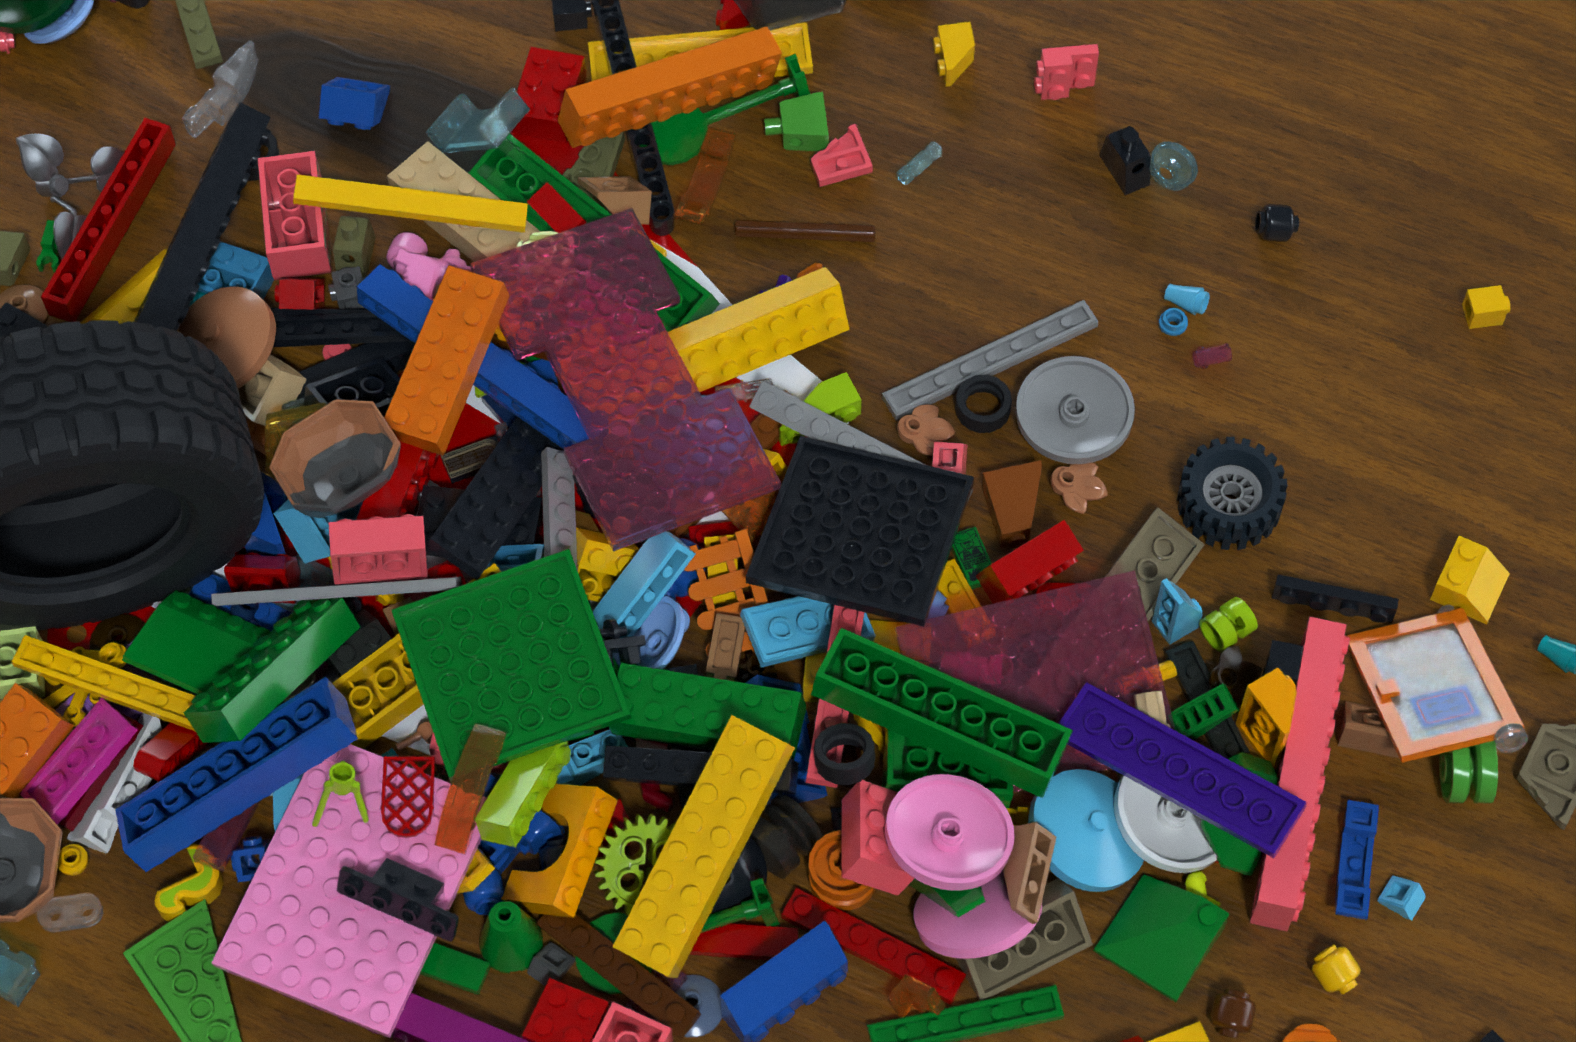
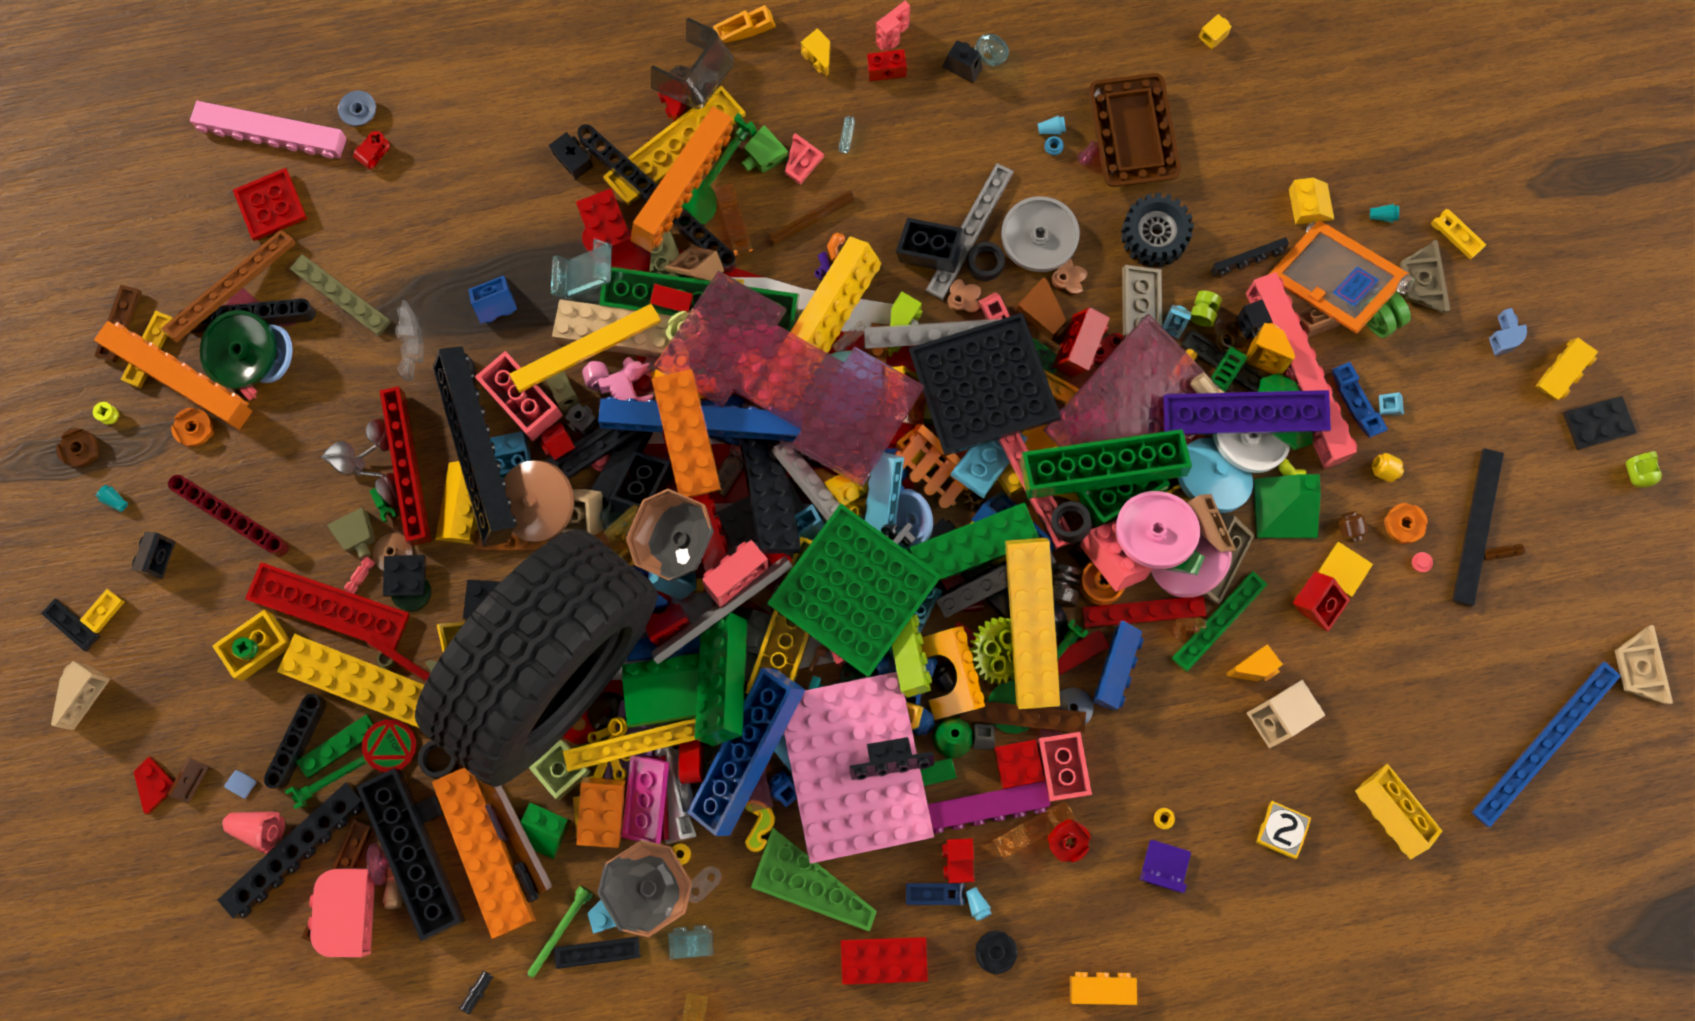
camera: 30 degrees left, 15 degrees up
(342, 783) = (818, 722): lime plant -> none
(419, 792) = (837, 681): red window -> none
(468, 788) = (885, 675): clear orange slope -> none
(725, 647) = (954, 500): medium nougat hinge -> none
(924, 341) = (930, 245): none -> black brick
(1027, 111) = (886, 65): none -> red brick
(1276, 222) = (1070, 49): black head -> none
(1289, 359) = (1134, 130): none -> reddish brown wedge

